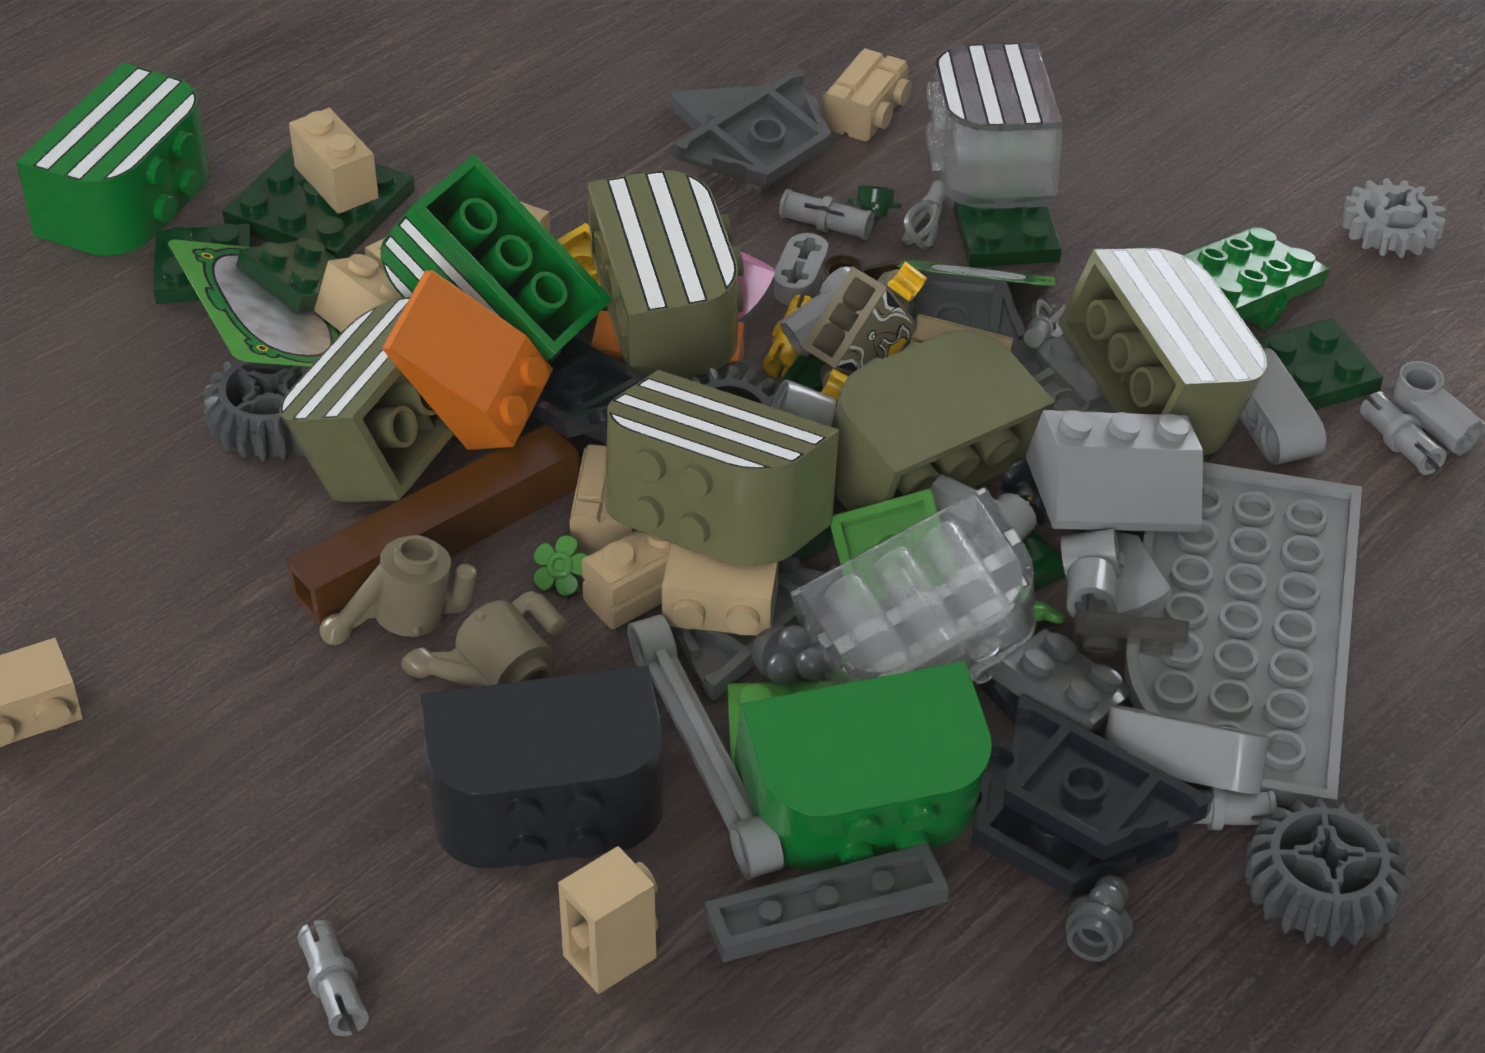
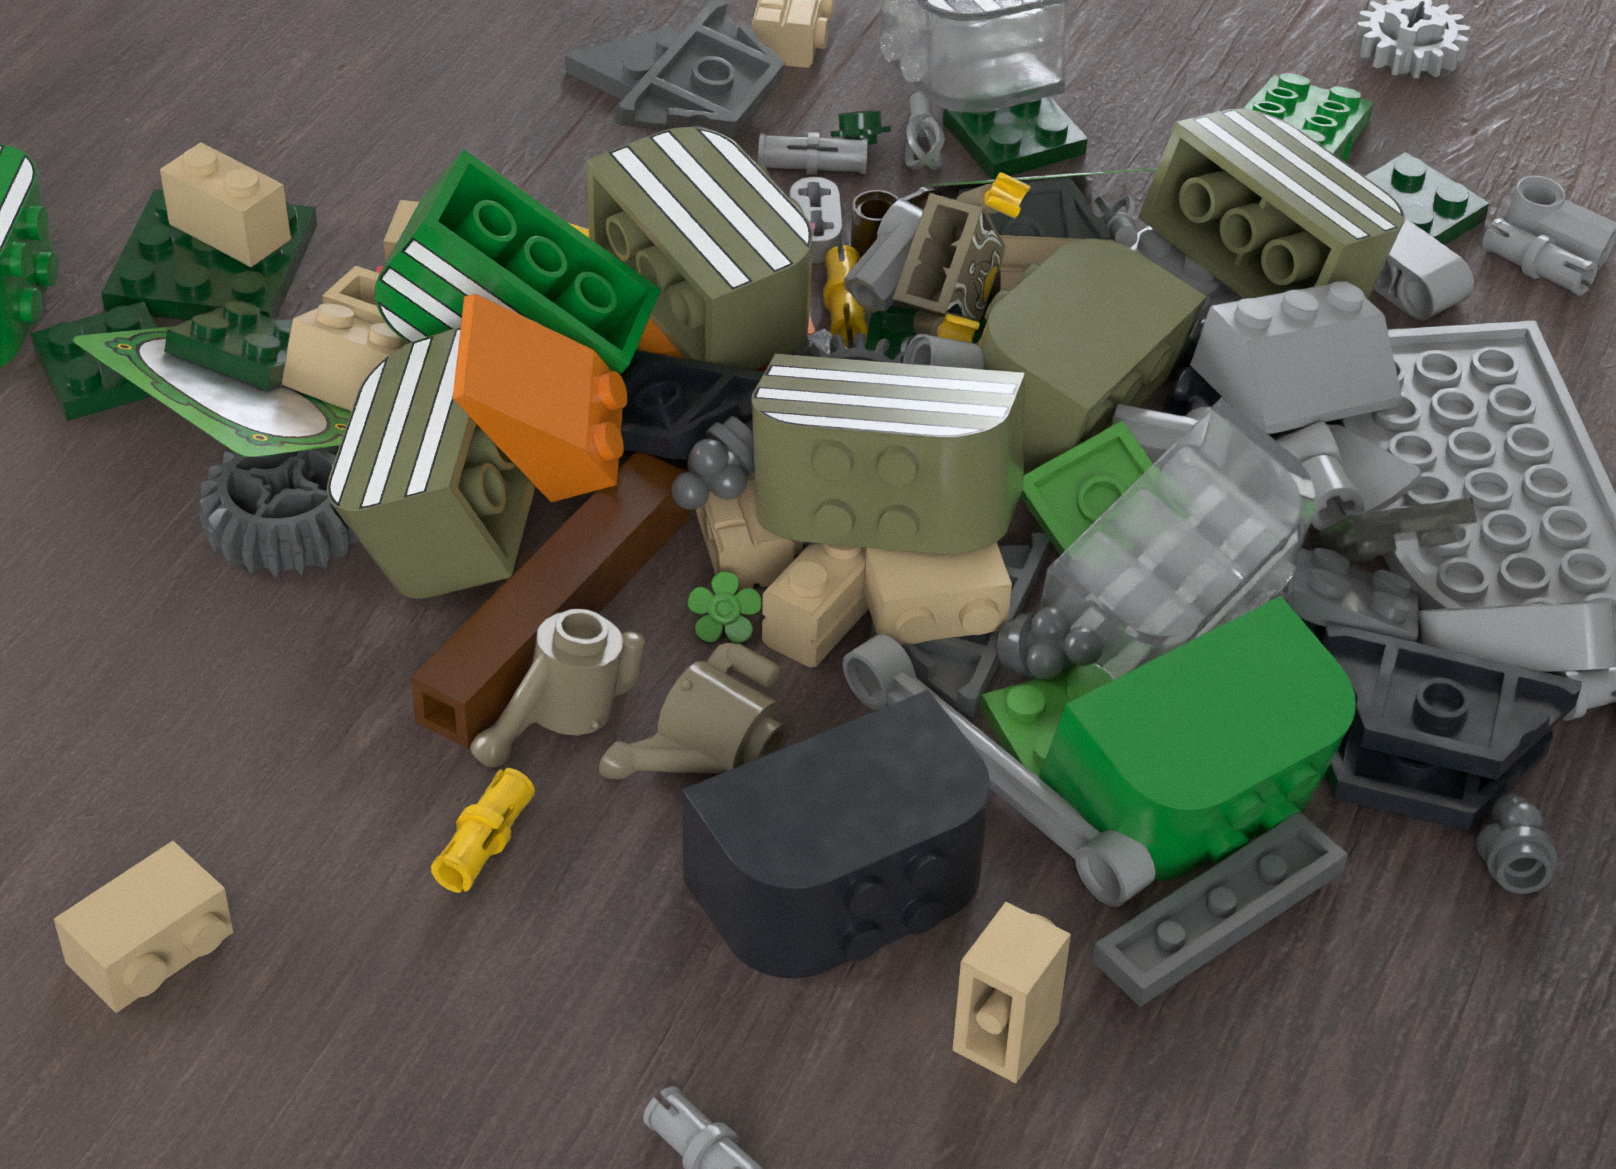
camera: 20 degrees left, 0 degrees up
(291, 689) = (482, 830): none -> yellow pin
(586, 449) = (716, 463): none -> dark grey piece

